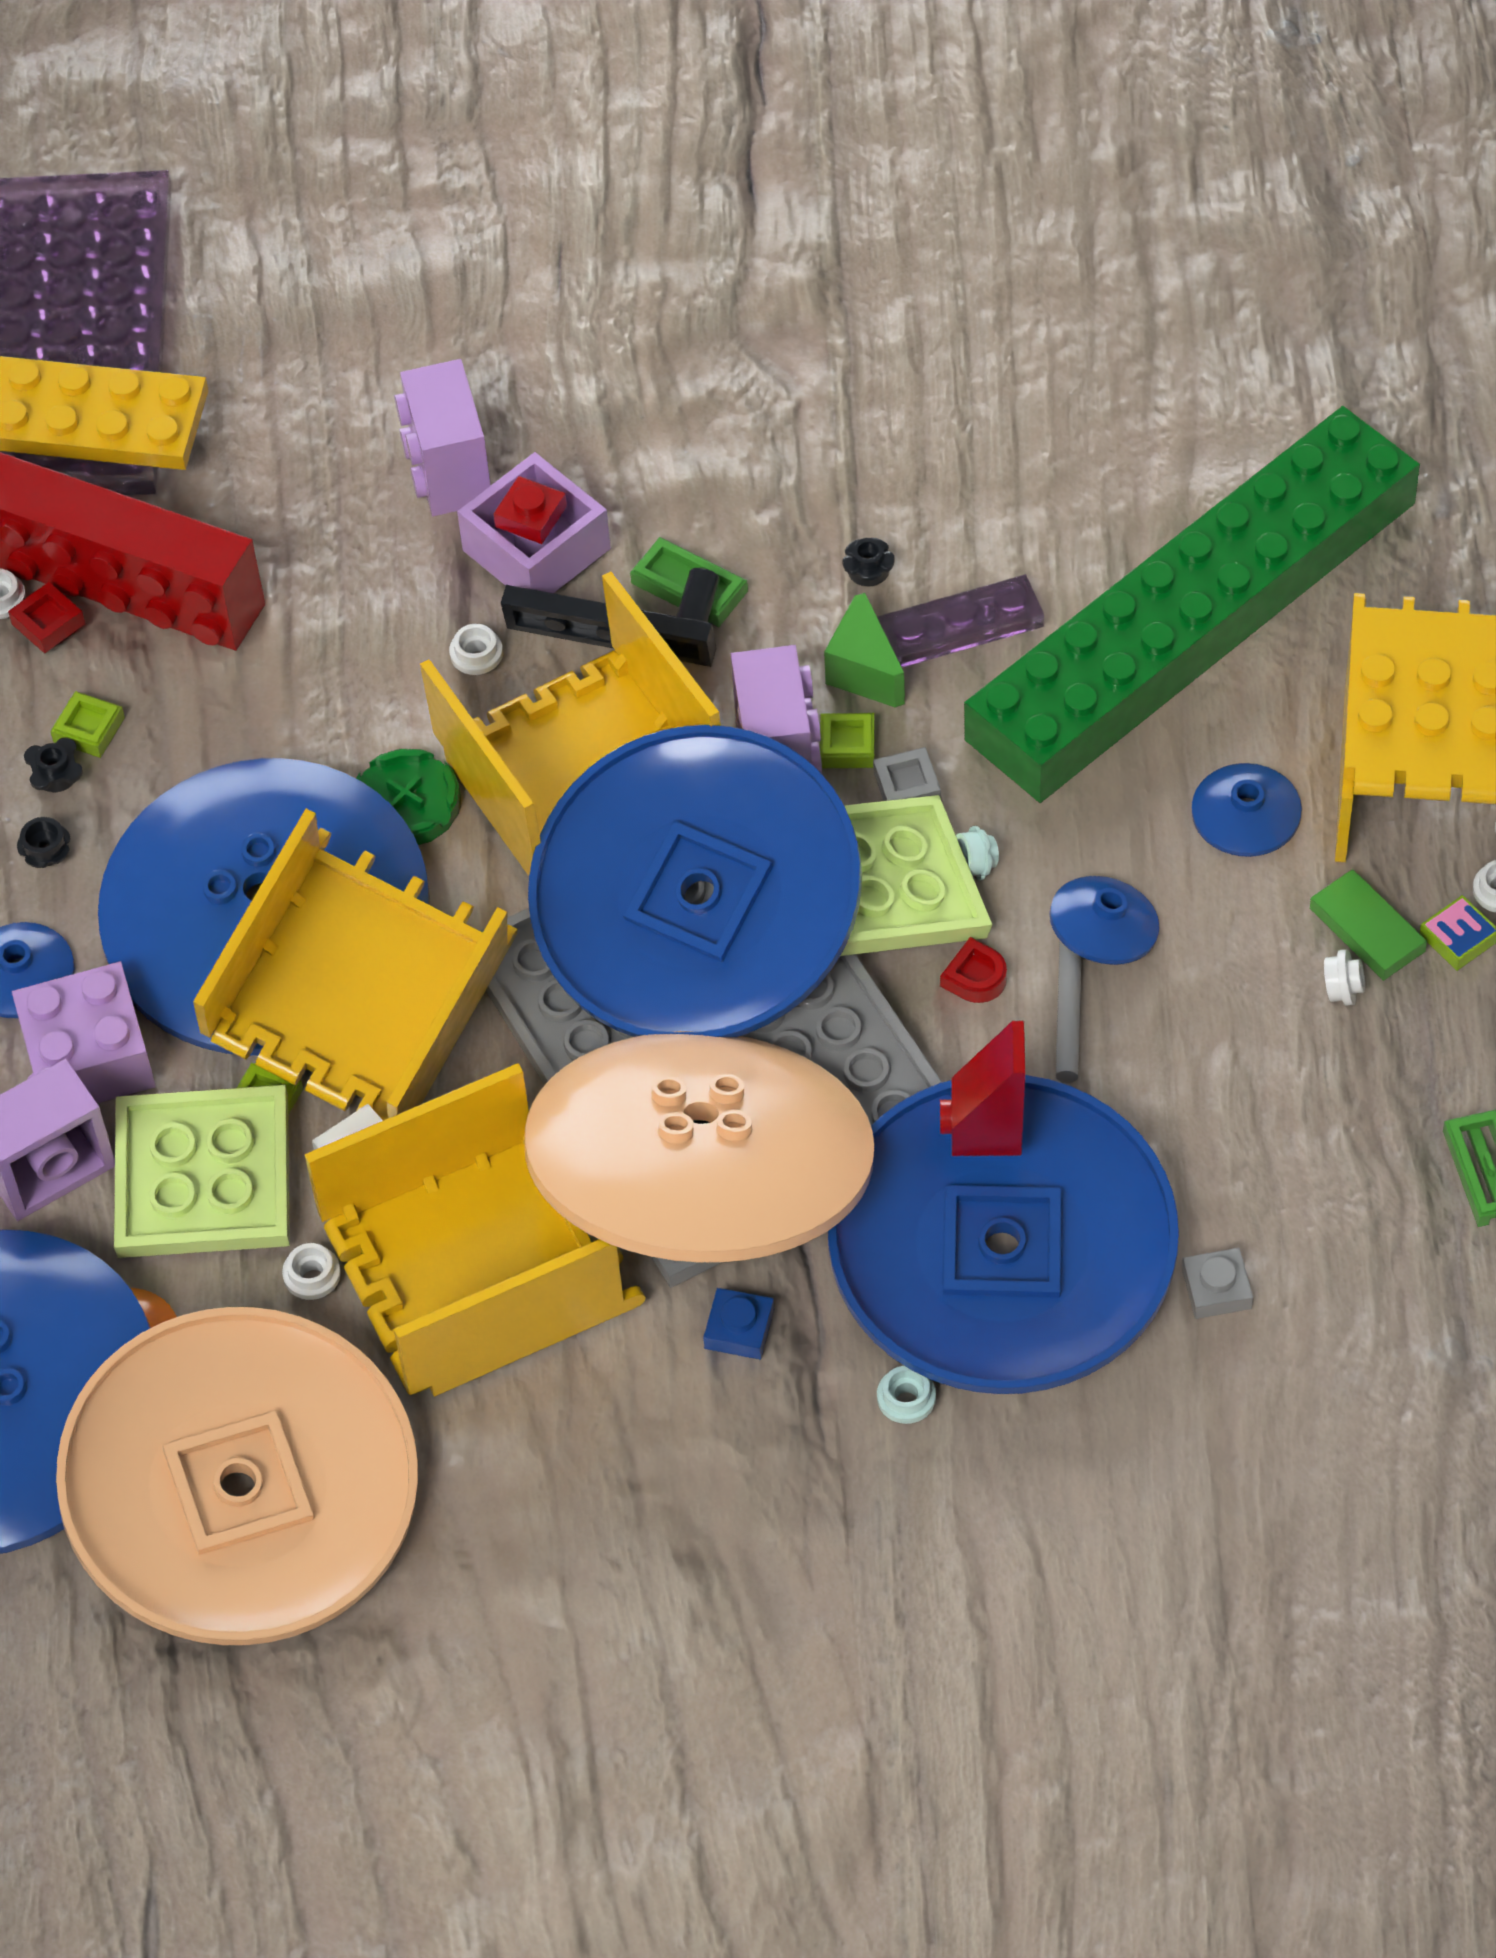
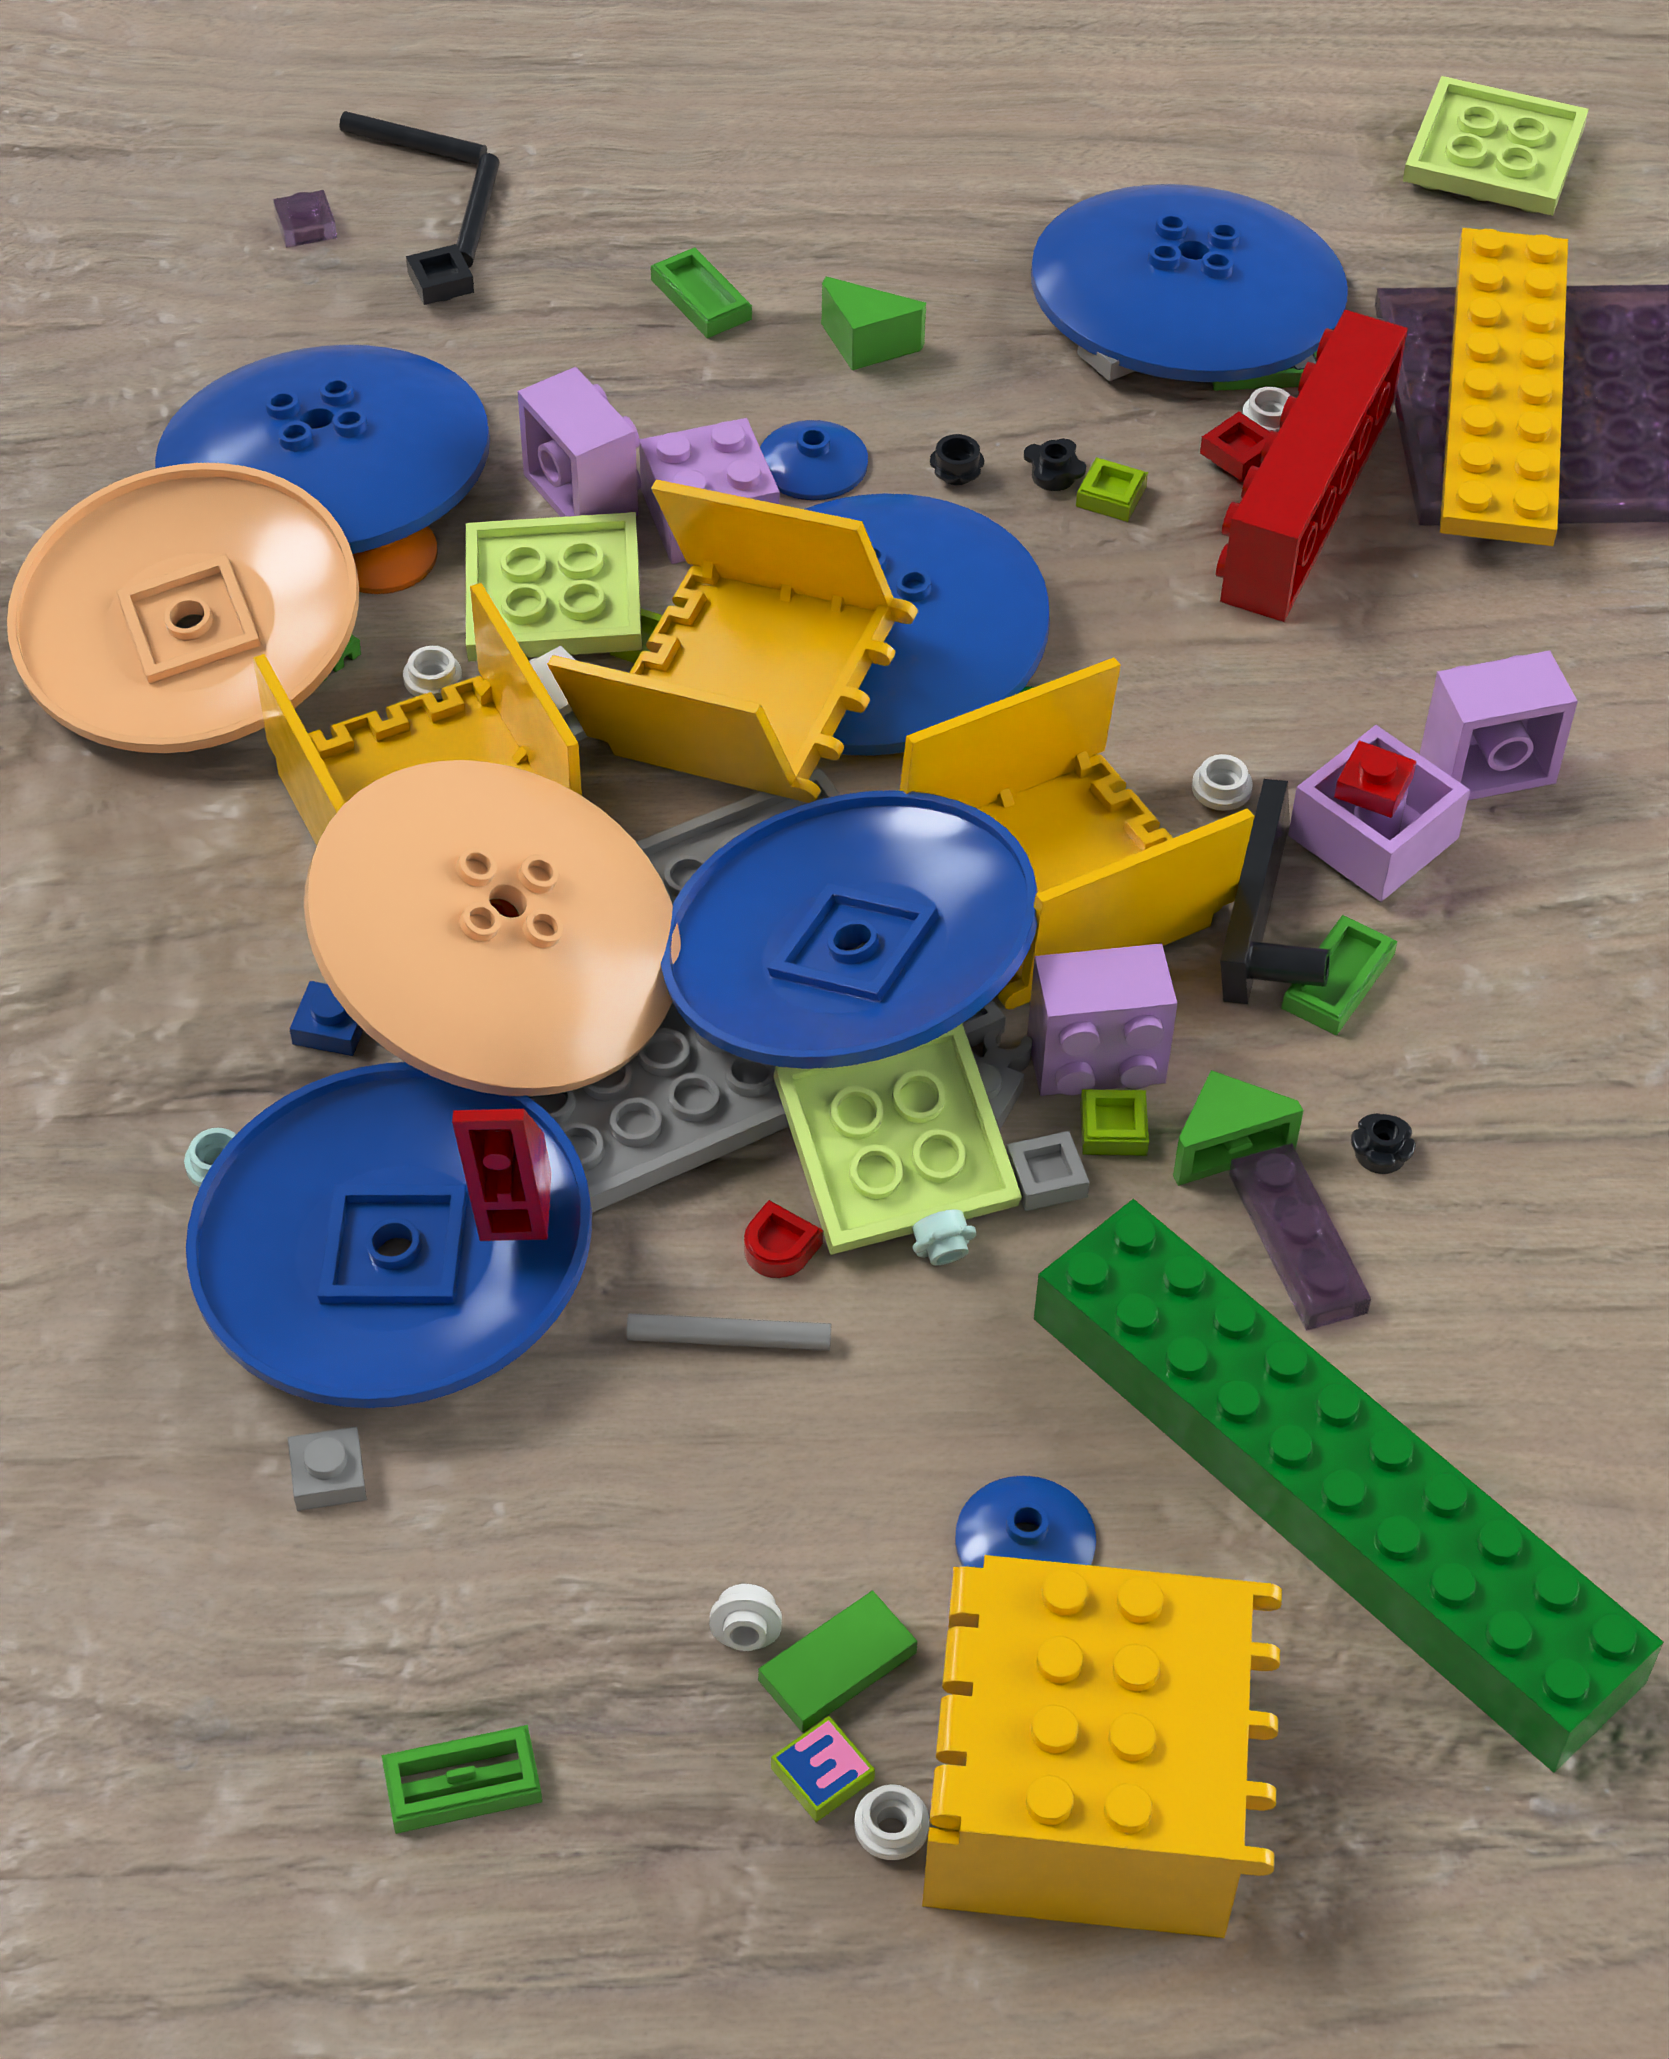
camera: 85 degrees right, 5 degrees down
(1104, 920) = (842, 1397): blue dish -> none

